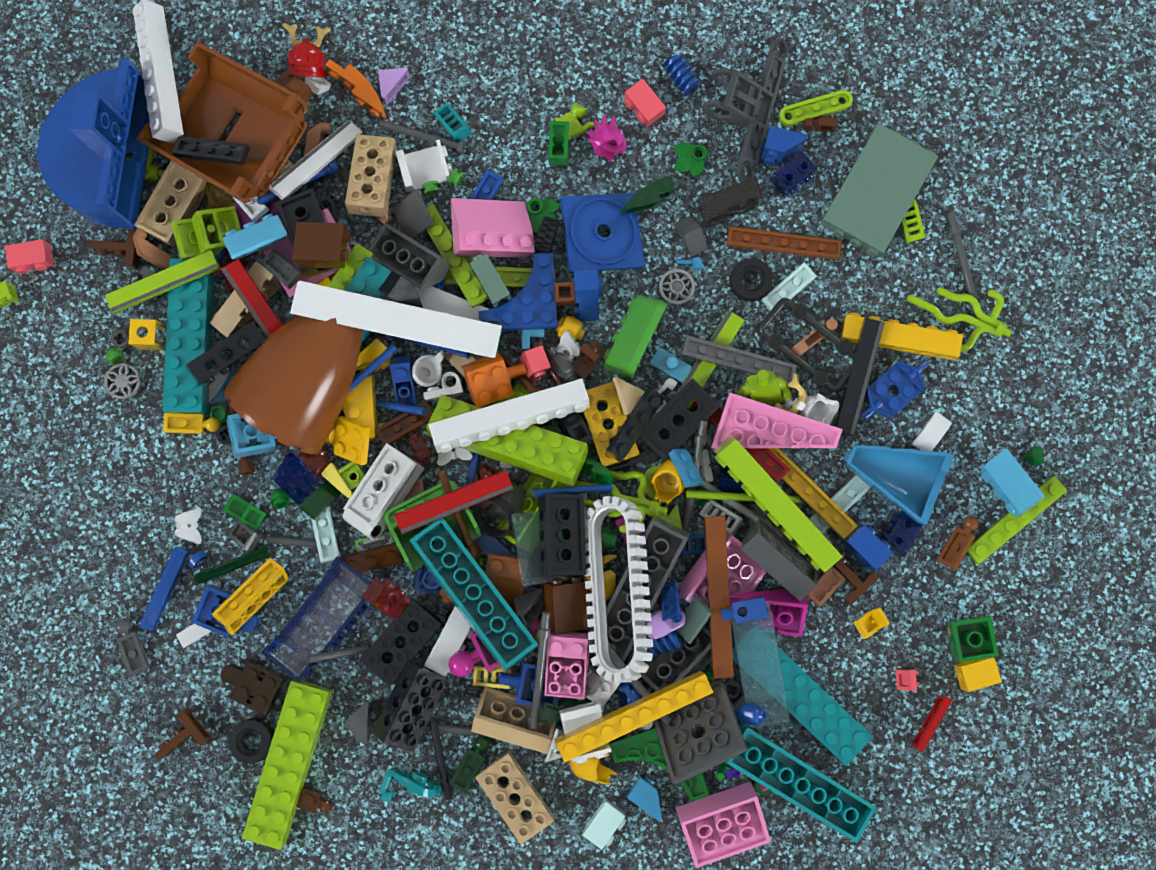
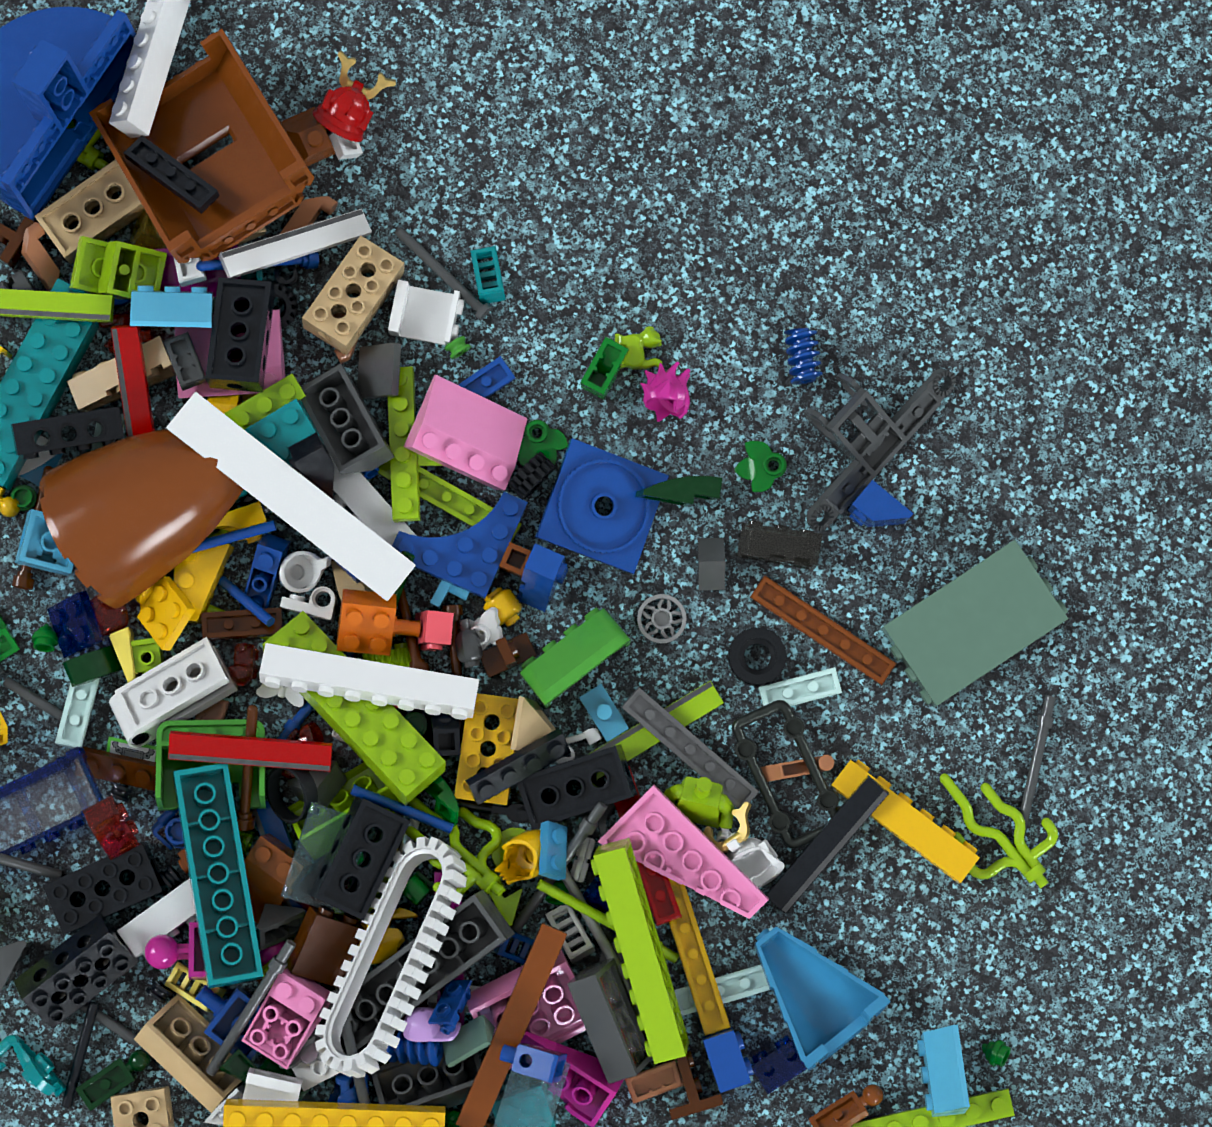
camera: 25 degrees right, 0 degrees up
(220, 438) = (10, 526): black bush -> none
(321, 245) = (244, 361): reddish brown brick -> none
(359, 86) = (396, 183): orange slope -> none
(391, 82) = (437, 188): lavender slope -> none
(431, 188) = (420, 345): bright green bush -> none
(490, 280) = (431, 501): sand green brick -> none
(644, 102) = (738, 369): coral piece -> none
(696, 262) = (701, 601): dark azure hand -> none
(793, 174) = (878, 551): clear blue brick -> none
(815, 107) = (949, 480): lime plate -> none
(823, 124) = (949, 506): reddish brown plate -> none
(905, 379) = (886, 882): blue plate -> none
(917, 220) = (1005, 673): lime slope -> none
(932, 432) = (883, 959): white slope -> none

